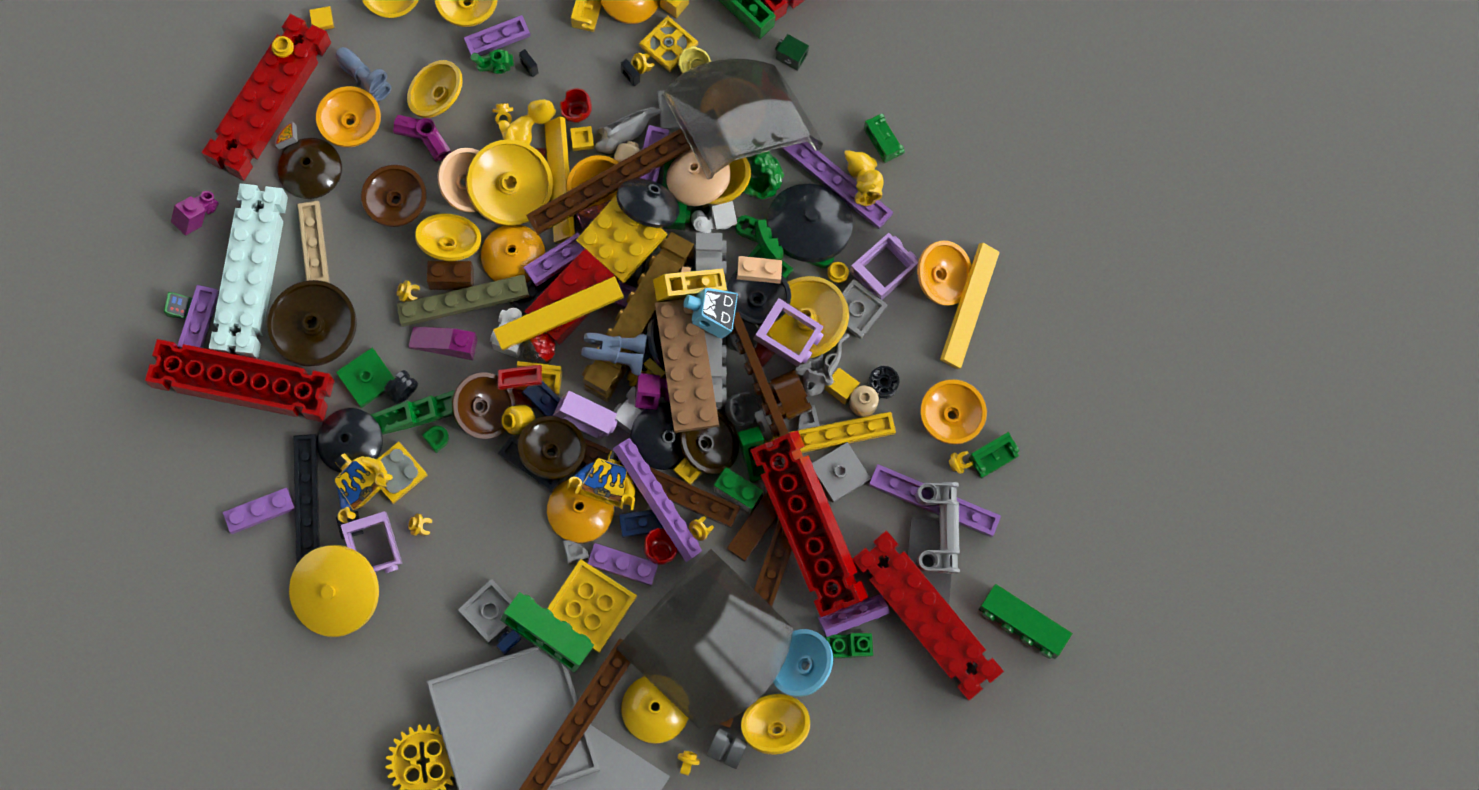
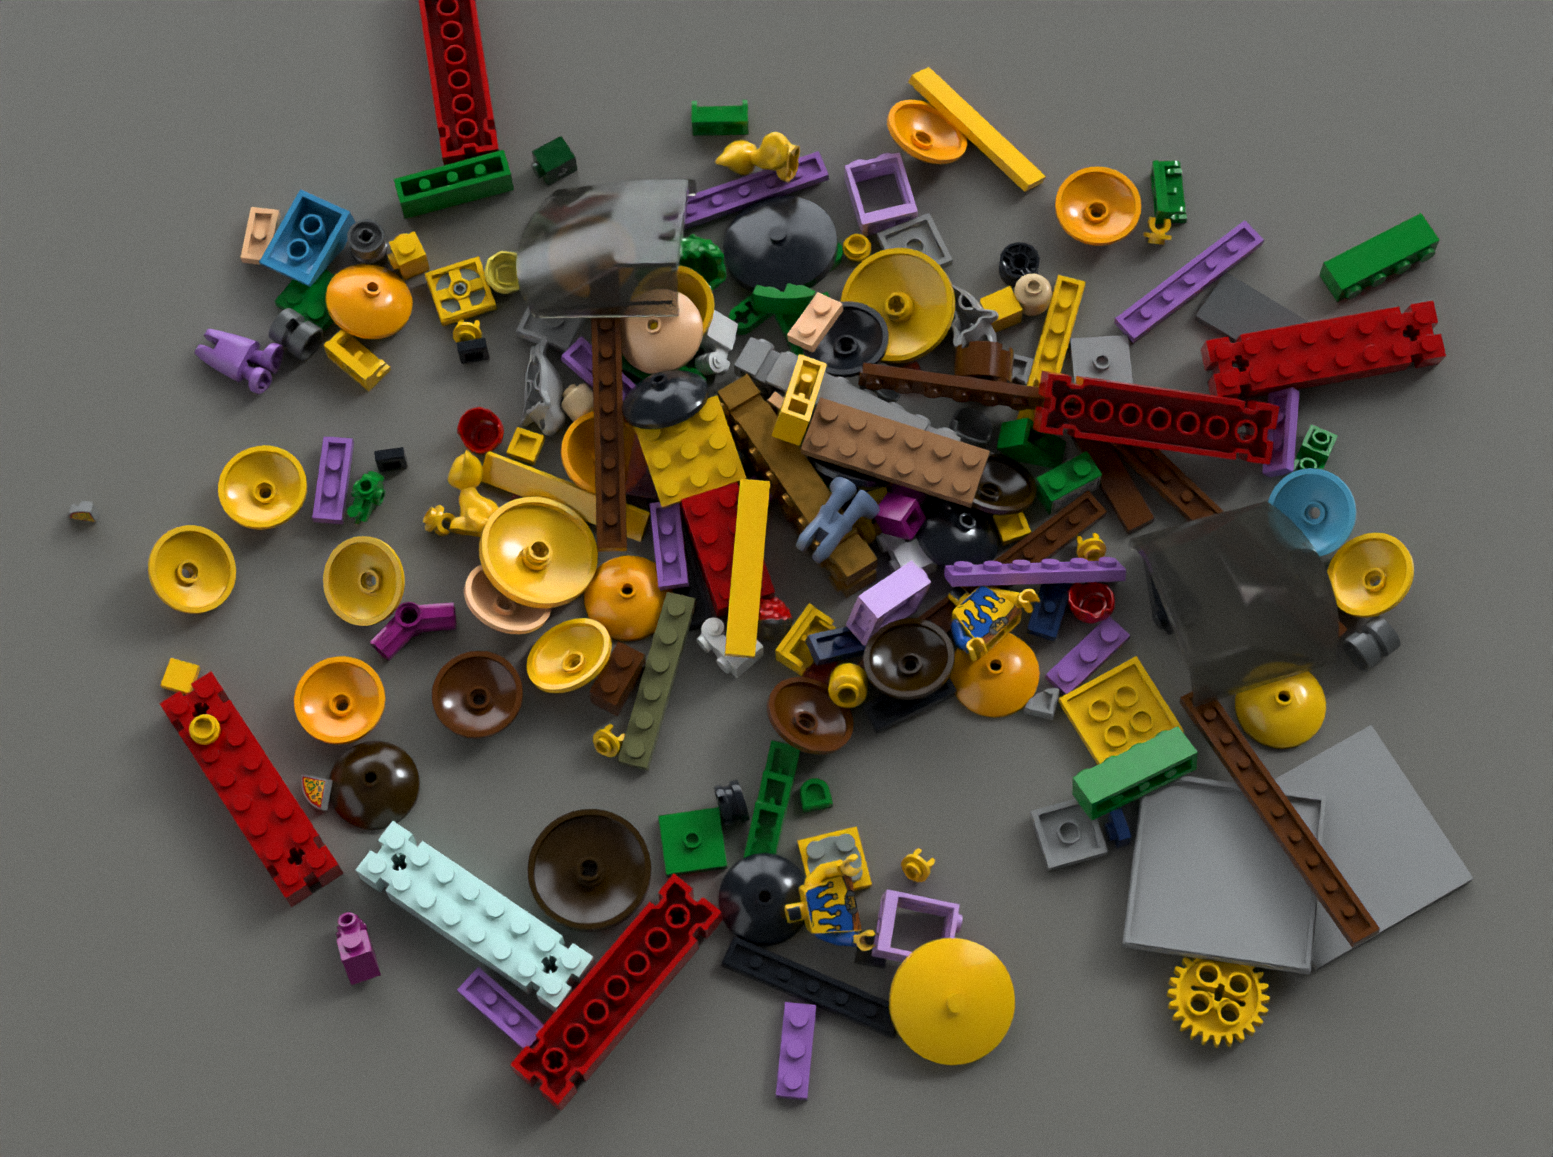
camera: 55 degrees left, 5 degrees down
(177, 305) = (470, 1028): slope -> none
(313, 241) = (477, 825): tan tile -> none
(372, 82) = (287, 660): sand blue piece -> none
(444, 341) = (698, 727): magenta slope -> none
(520, 377) = (800, 653): red tile -> none
(689, 758) = (1362, 695): yellow plate -> none
(713, 310) = (851, 386): torso -> none
(761, 420) = (998, 415): light grey tile -> none
(781, 350) = (893, 340): lavender window -> none
(945, 497) = (1196, 263): light grey piece -> none

